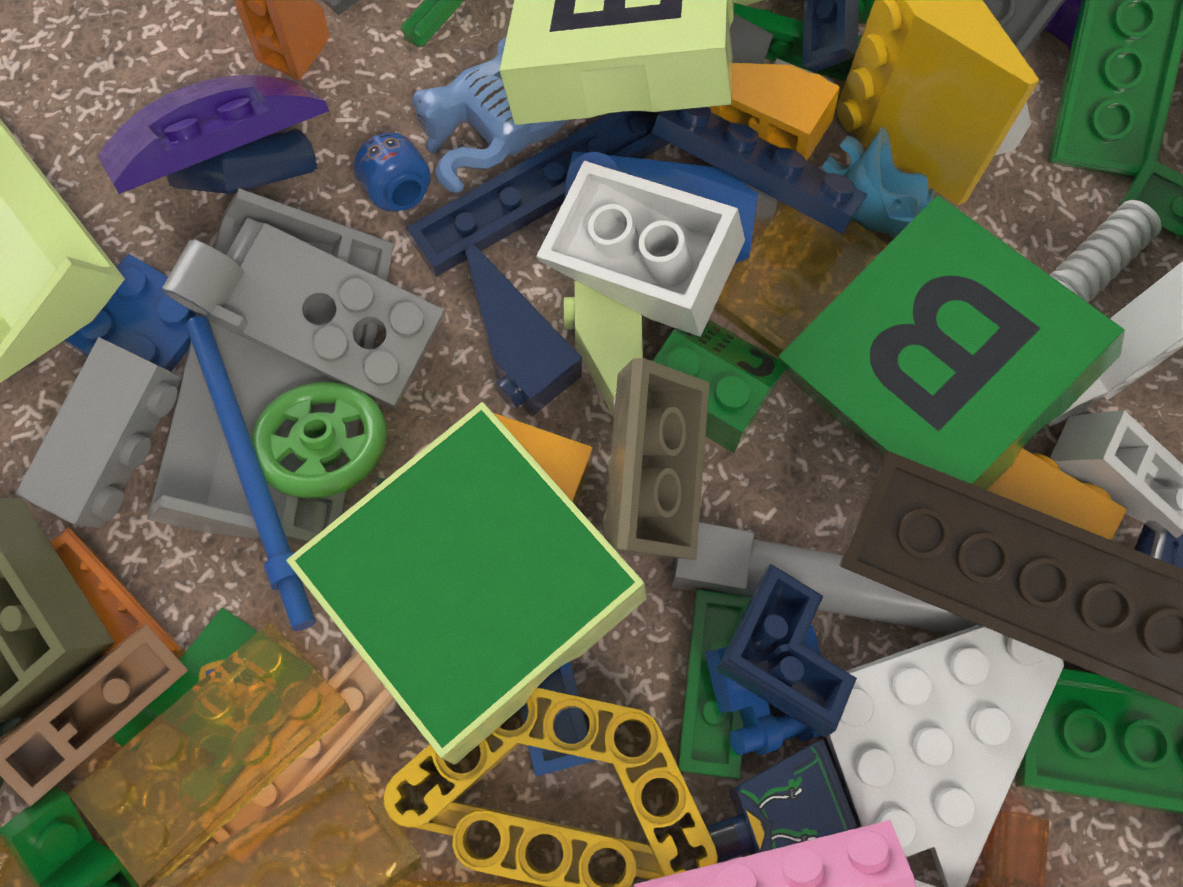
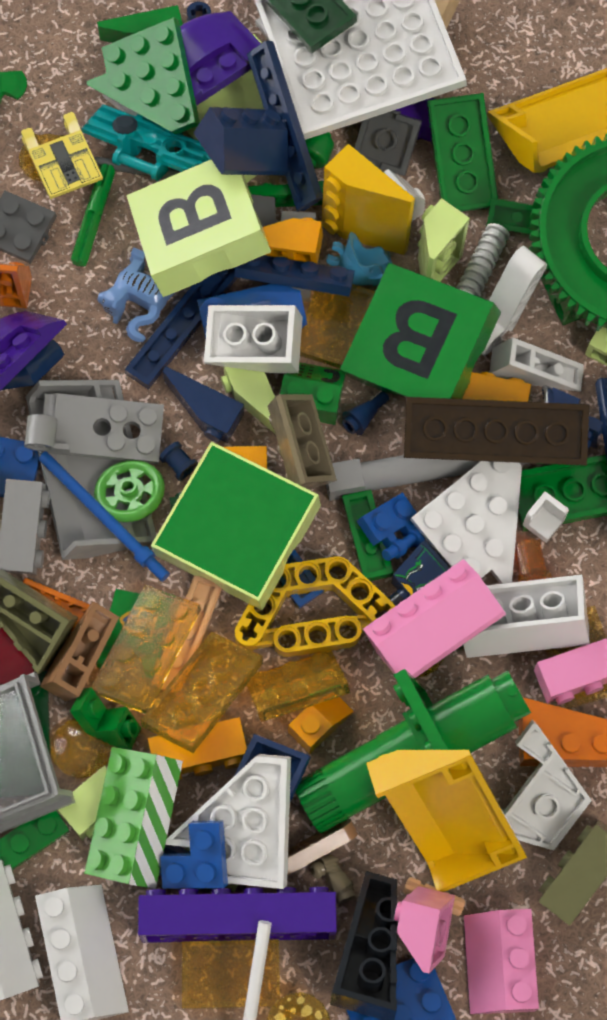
camera: 20 degrees left, 0 degrees up
(392, 172) = (103, 342): blue head -> none
(427, 411) = (178, 460): none -> dark blue bush
(773, 663) = (387, 510): dark blue brick -> none
(784, 454) = (359, 417): none -> dark blue cone
(1050, 183) = (441, 239): none -> yellowish green slope
(1081, 785) = (545, 517): none -> white panel

